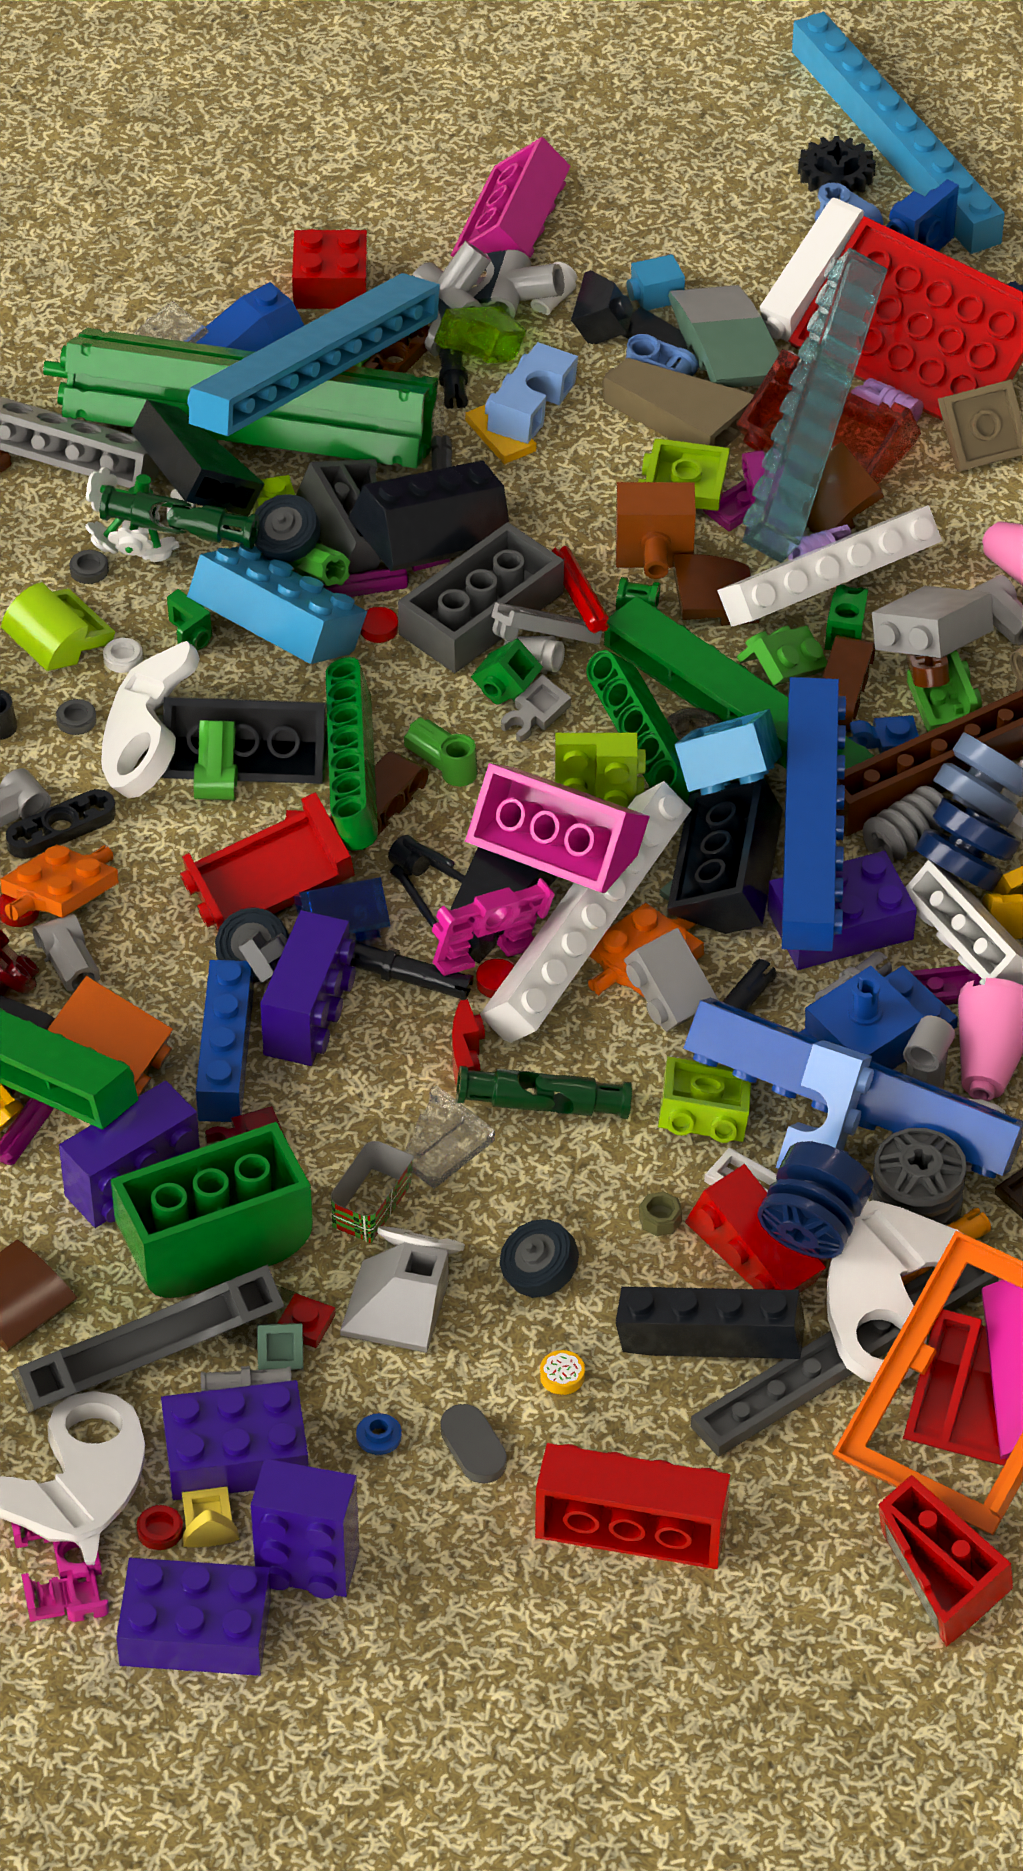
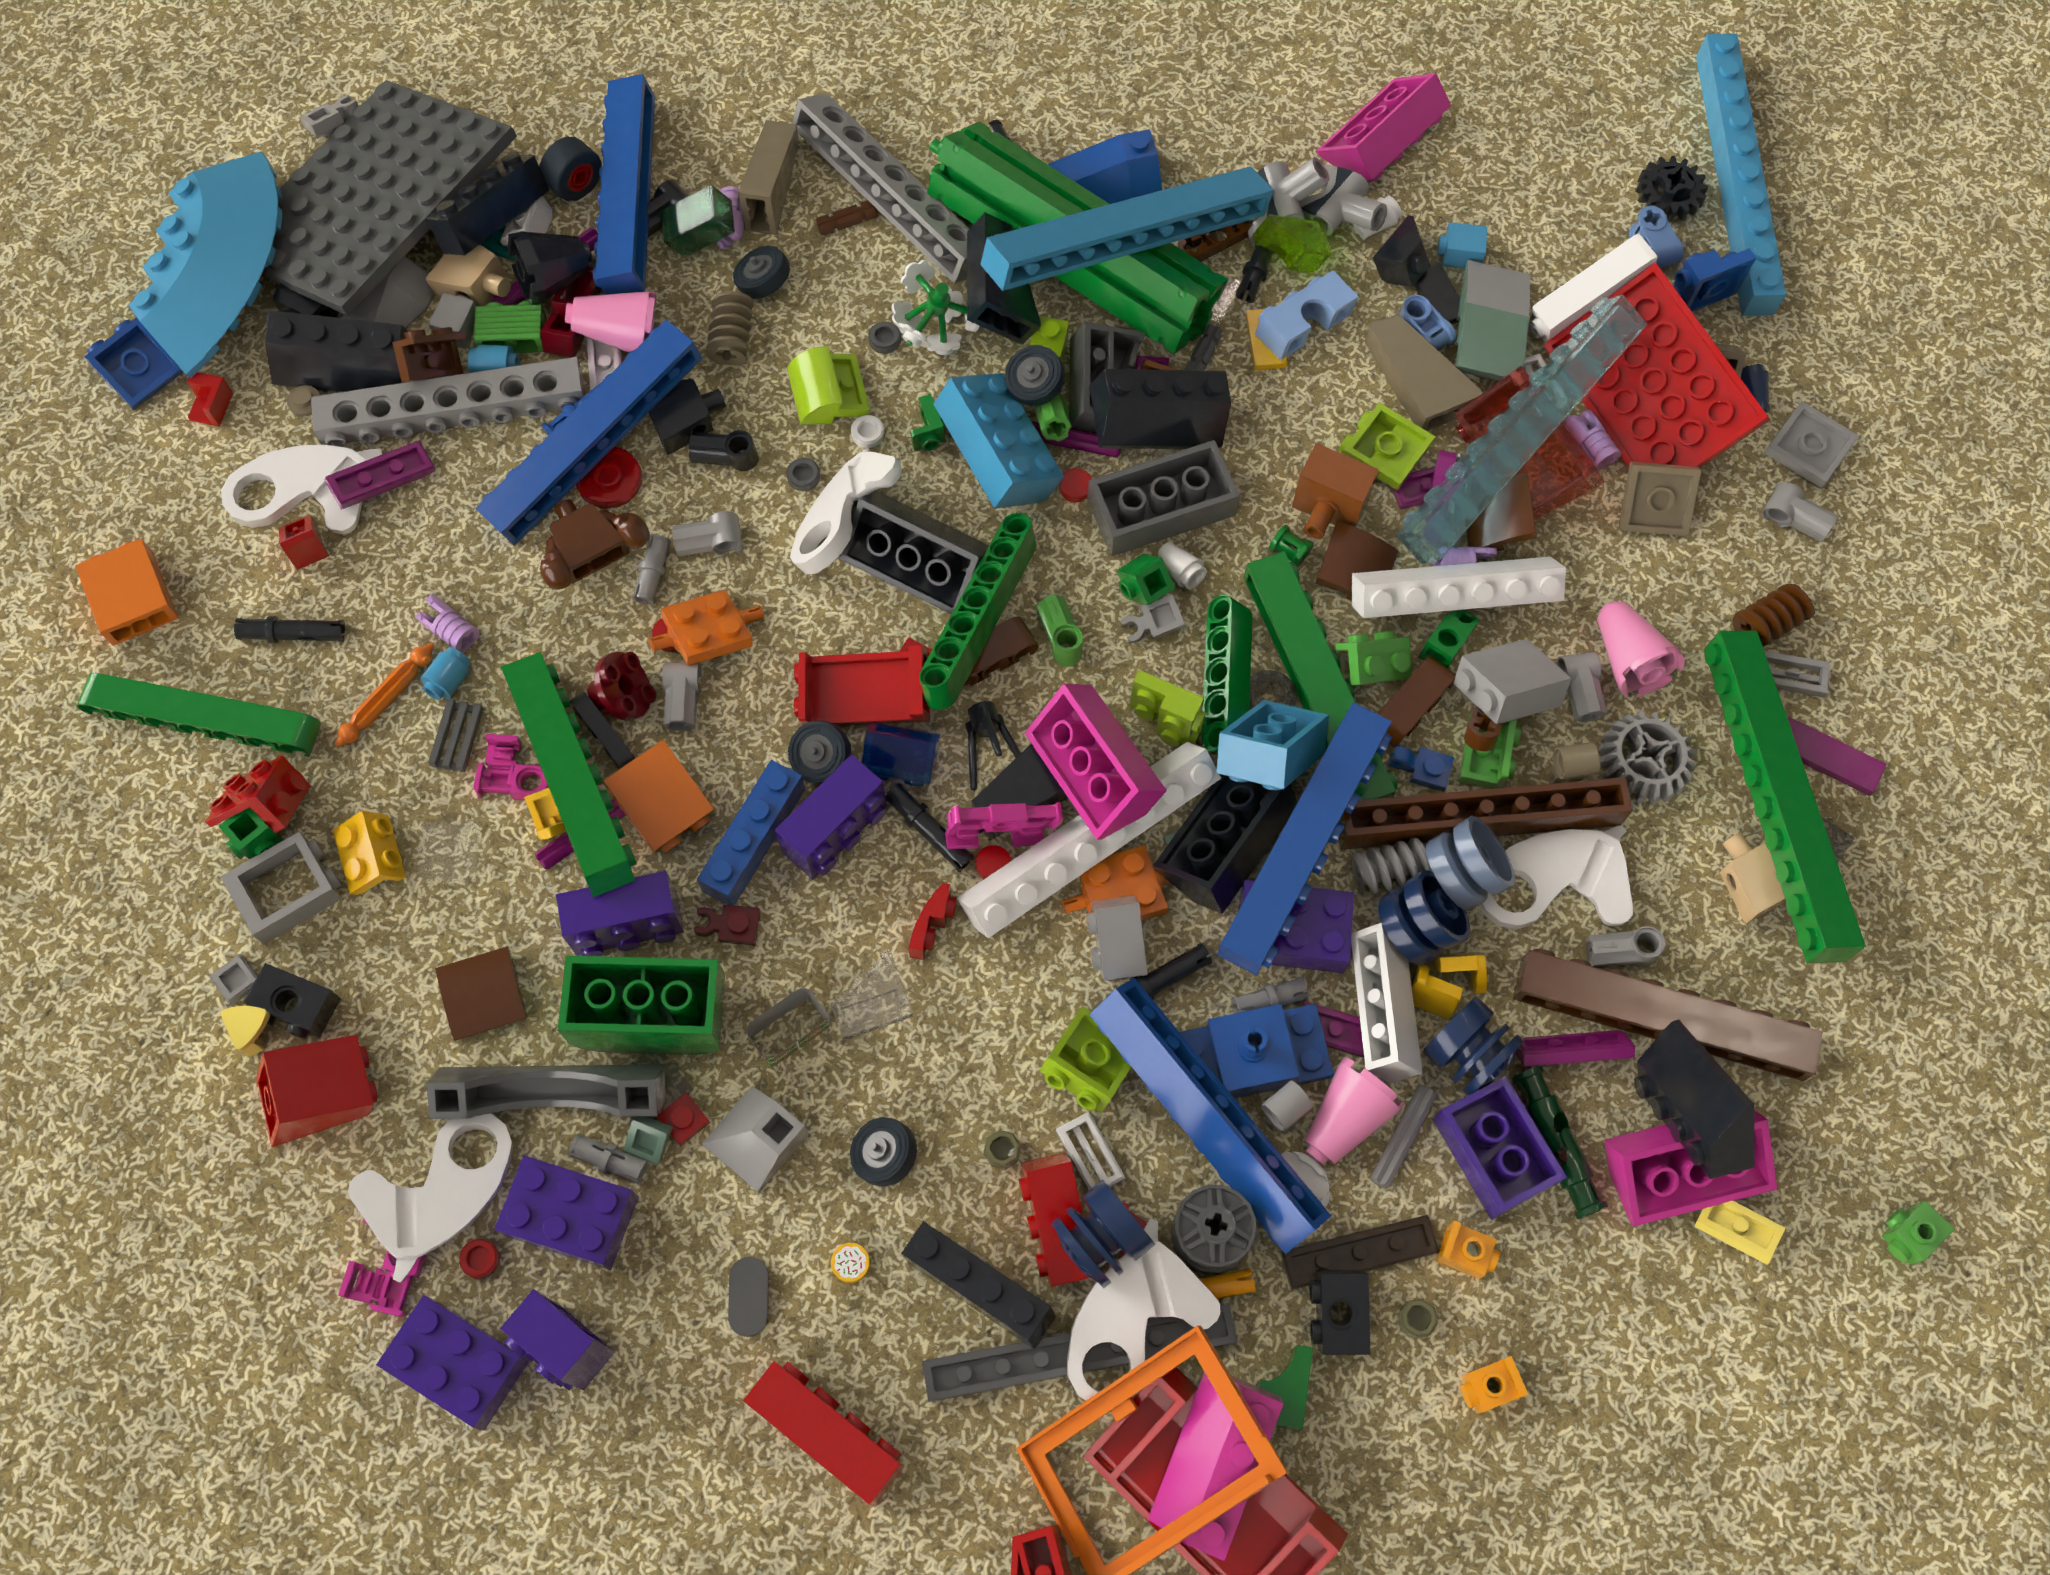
camera: 25 degrees right, 20 degrees up
(65, 811) = (730, 561): black beam -> none
(173, 324) = (1054, 142): clear piece -> none
(205, 522) = (965, 345): dark green piece -> none
(208, 1518) = (518, 1267): light yellow tile -> none
(215, 771) = (875, 574): bright green piece -> none
(263, 954) = (811, 772): dark grey tile -> none
(328, 267) = (1208, 131): red brick -> none
(378, 1443) = (690, 1262): blue plate -> none
(398, 1236) = (798, 1094): white dish -> none
(512, 618) = (1196, 547): light grey hinge -> none
(575, 1093) = (983, 1005): dark green piece -> none
(582, 592) = (1244, 523): red axle -> none
(840, 1078) = (1188, 1115): light blue arch -> none

